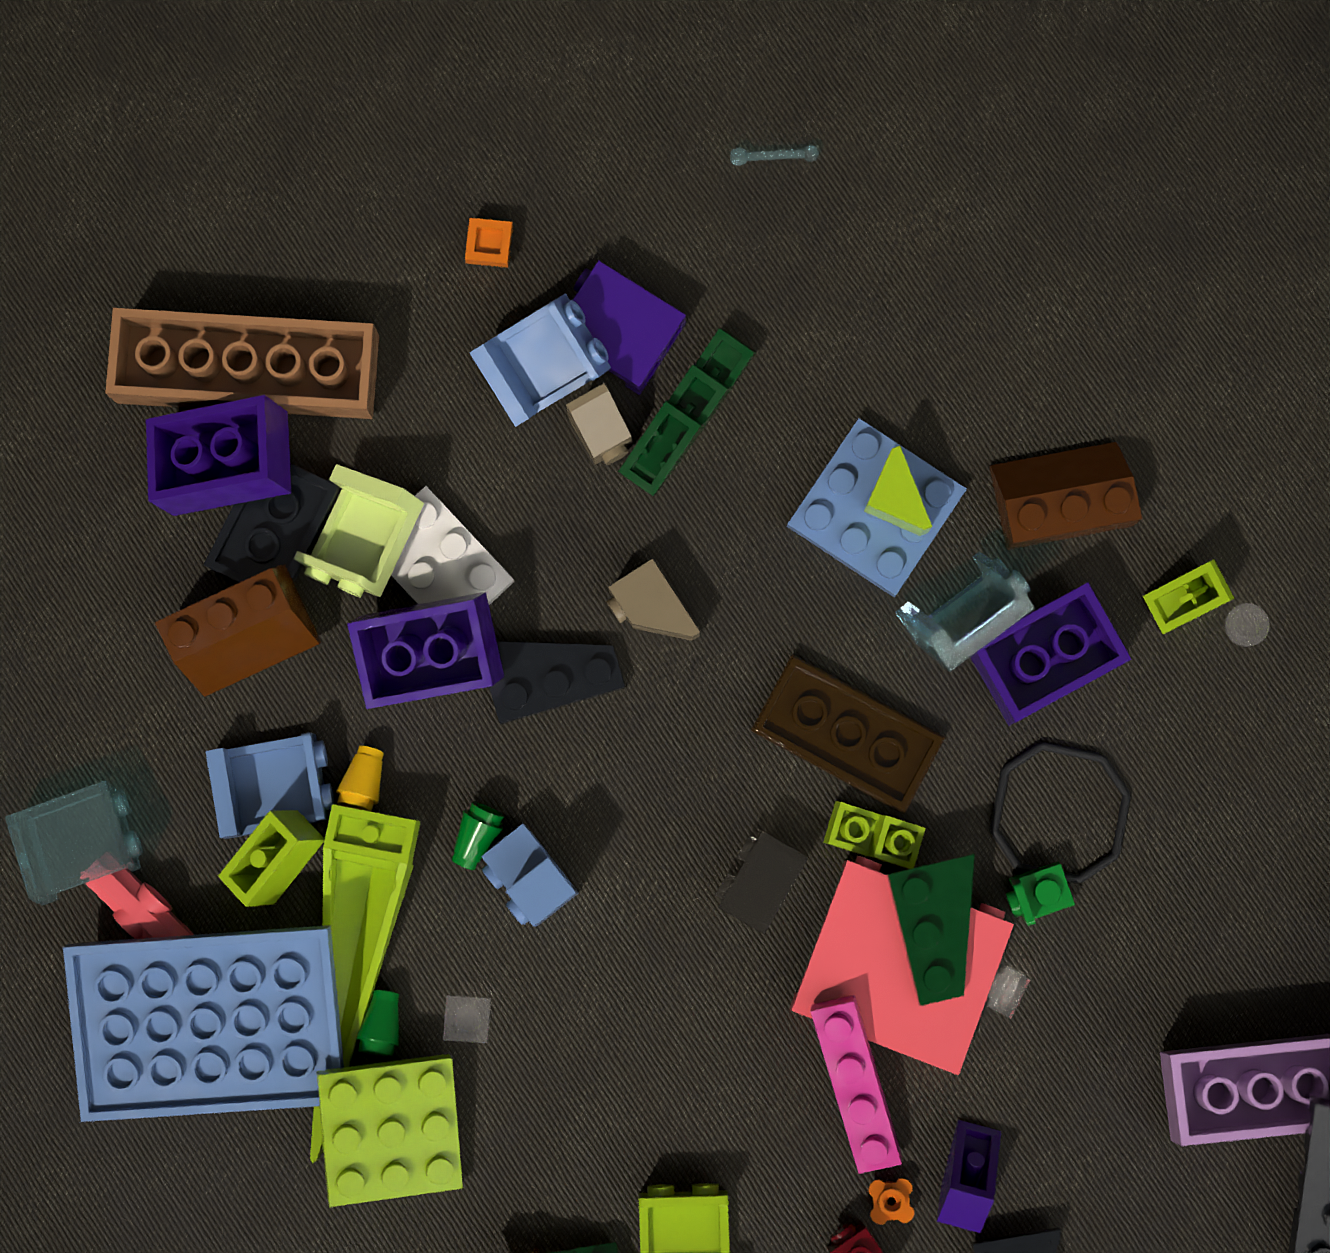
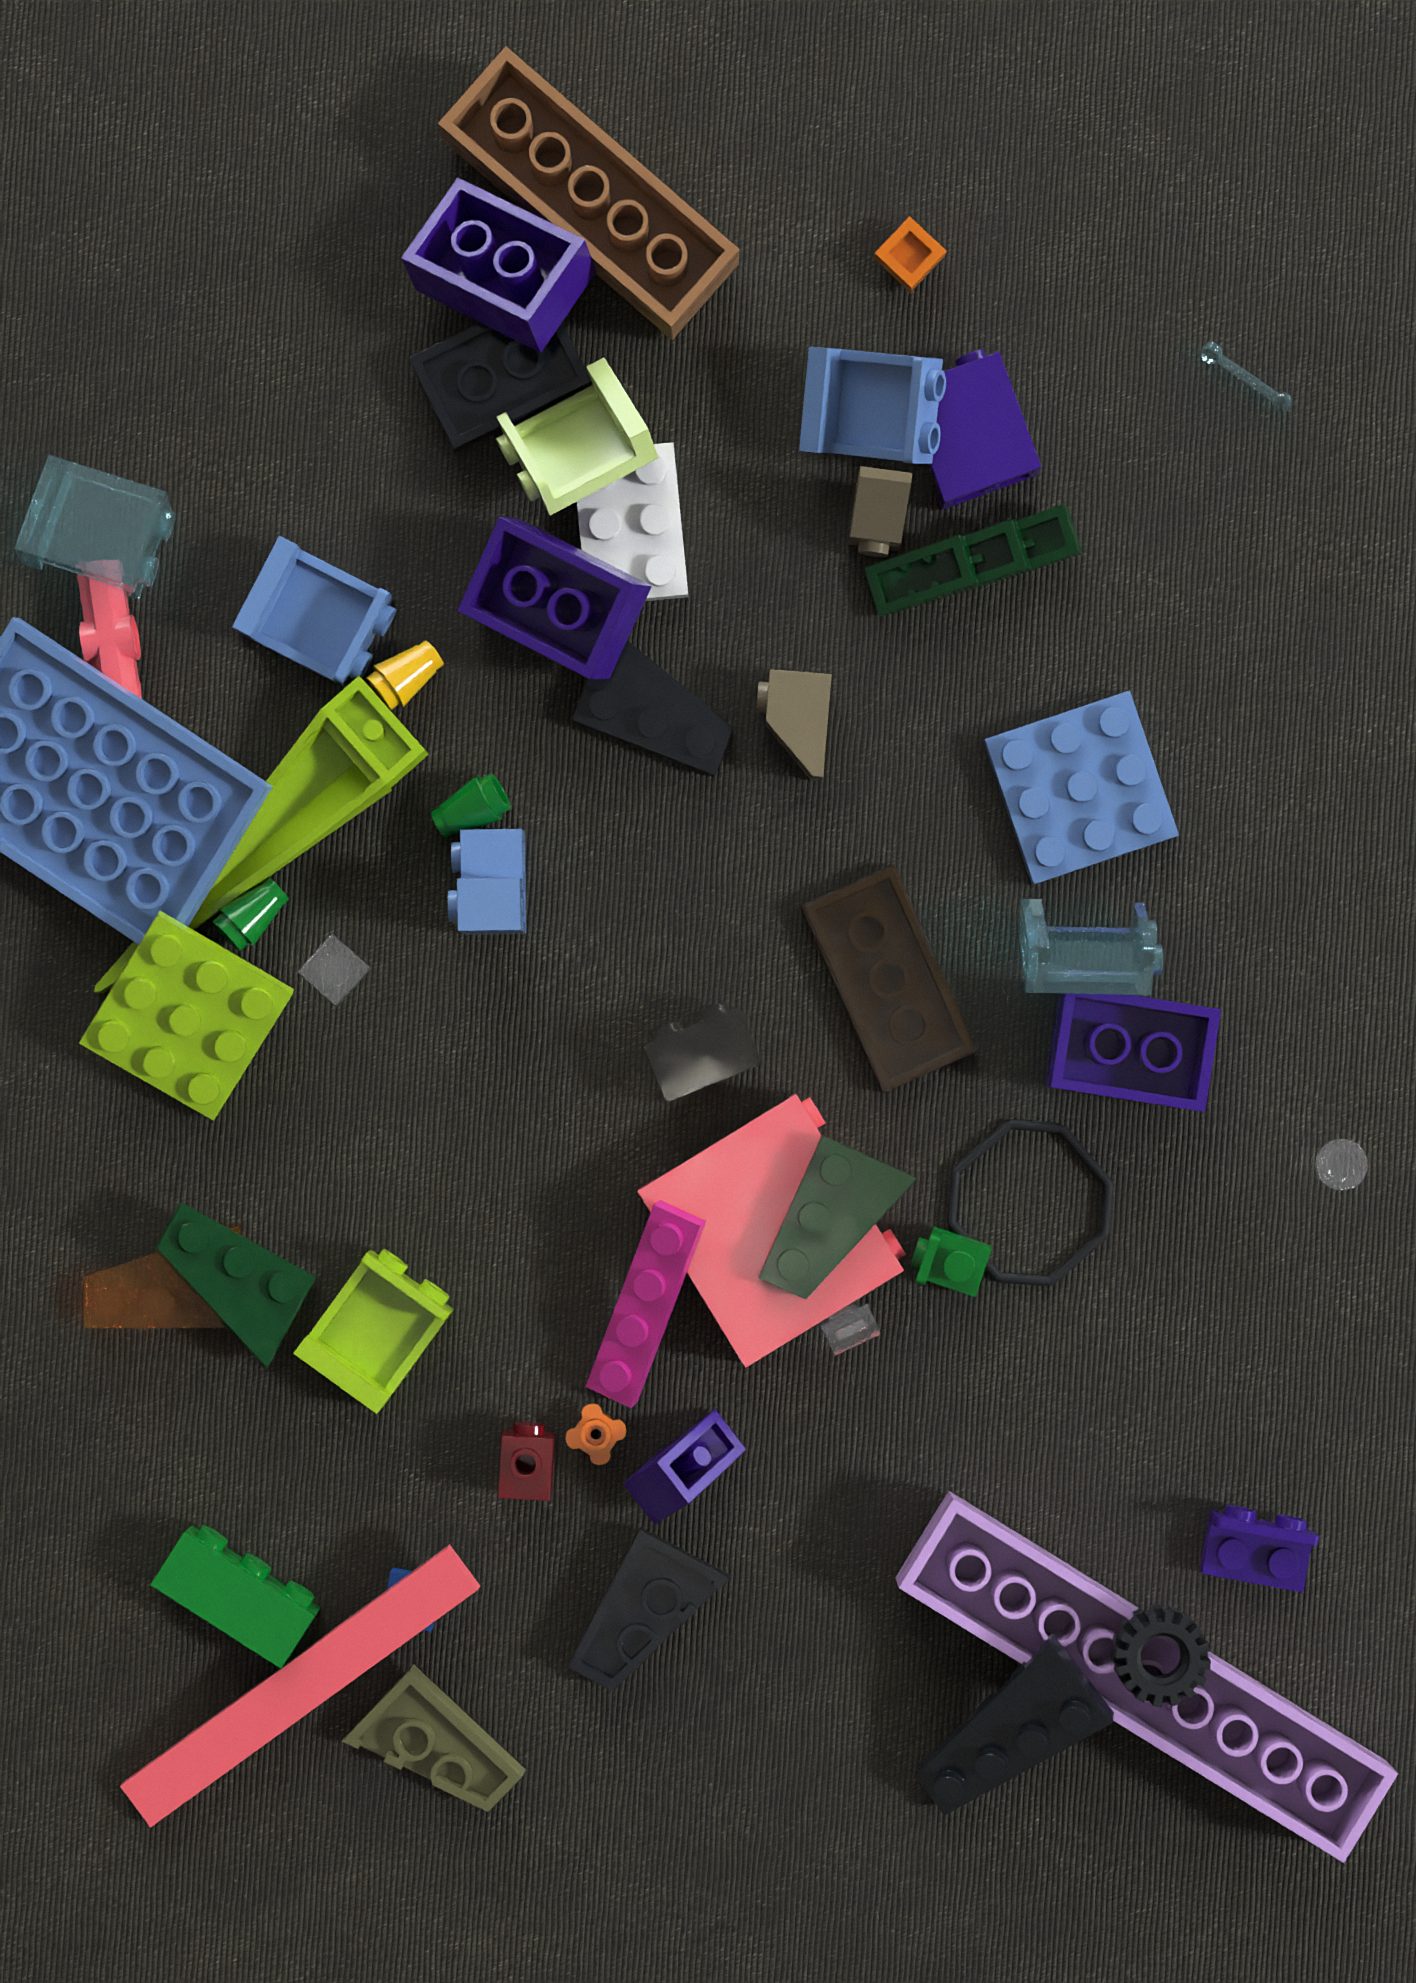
camera: 35 degrees right, 5 degrees up
(239, 631) = (394, 446): reddish brown slope -> none
(271, 857) = (265, 682): lime brick -> none
(874, 835) = (840, 1090): lime slope -> none
(897, 497) = (1105, 792): lime slope -> none
(1065, 495) = (1266, 912): reddish brown slope -> none
(1188, 597) = (1306, 1096): lime slope -> none

